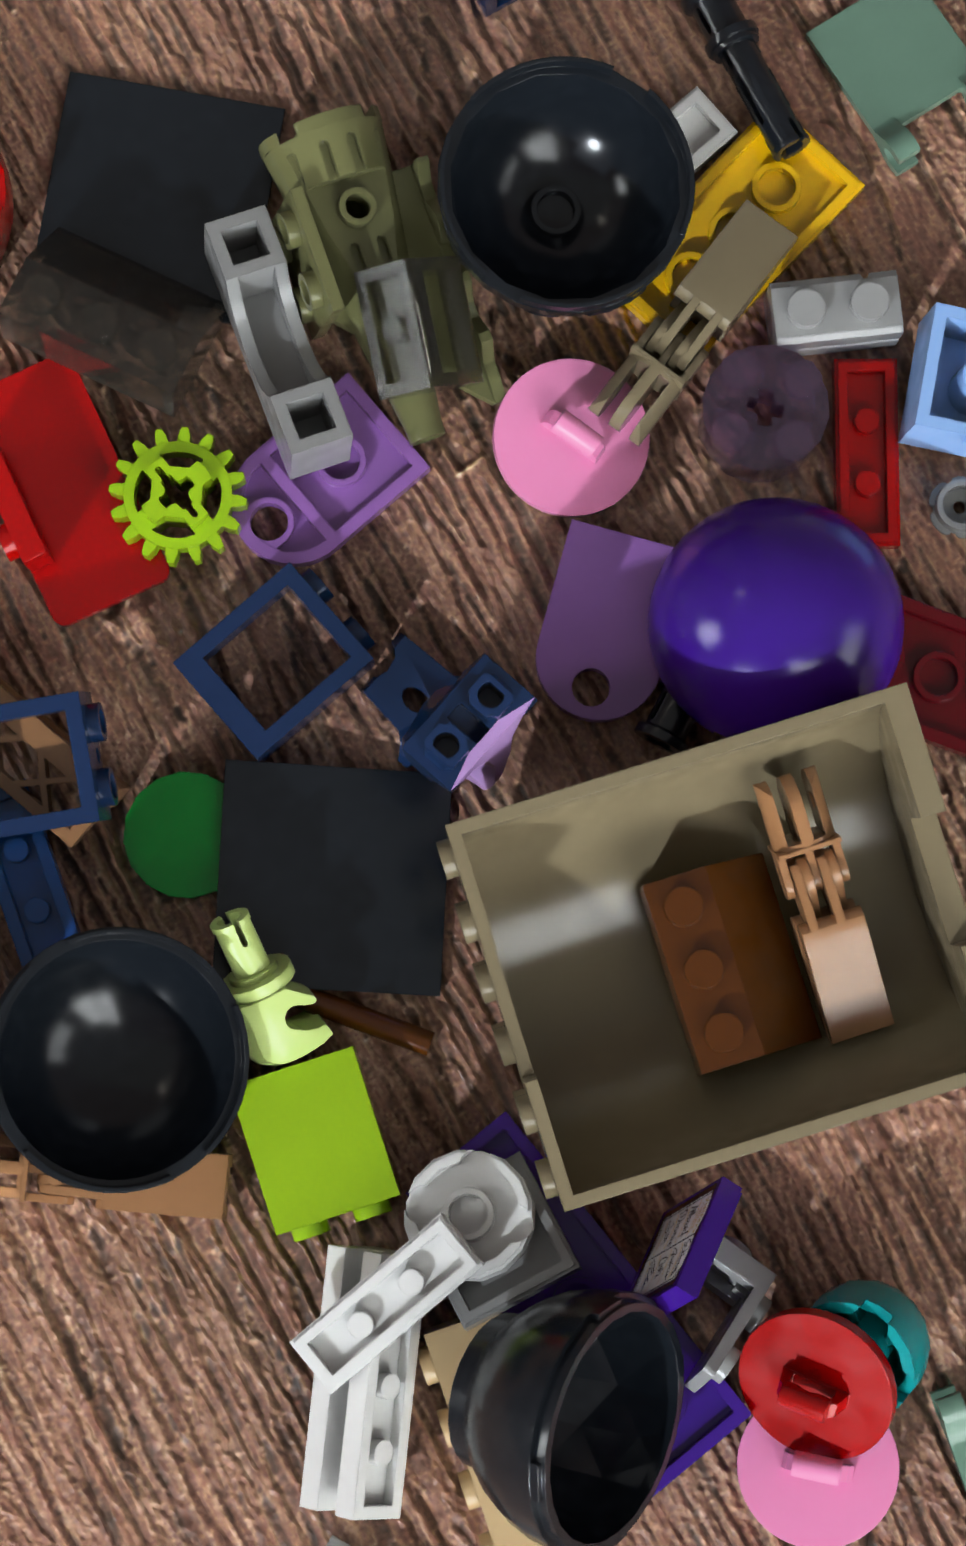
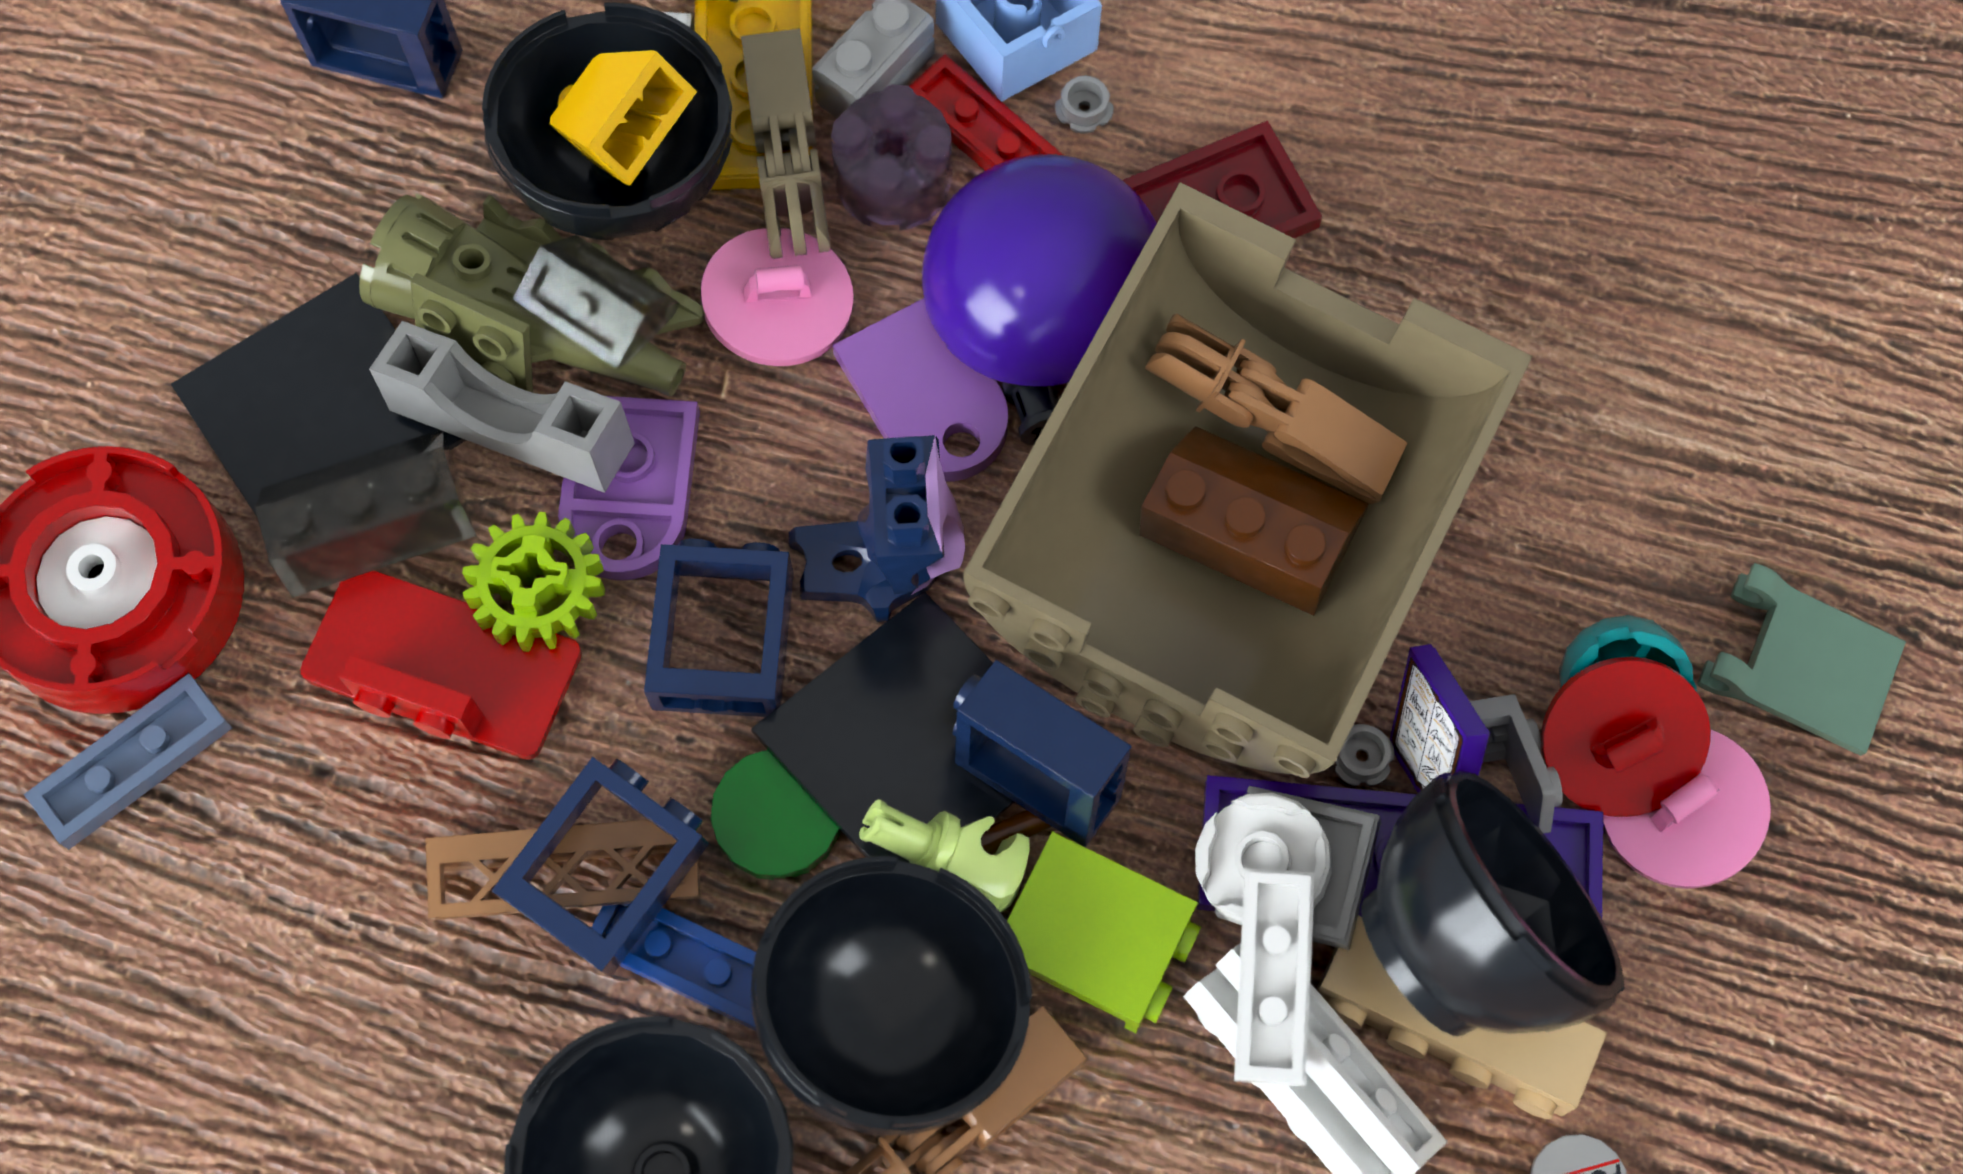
camera: 40 degrees left, 15 degrees down
(393, 984) = (1039, 752): none -> dark blue window
(569, 197) = (622, 110): none -> yellow torso
(634, 1221) = (1379, 752): none -> light grey plate

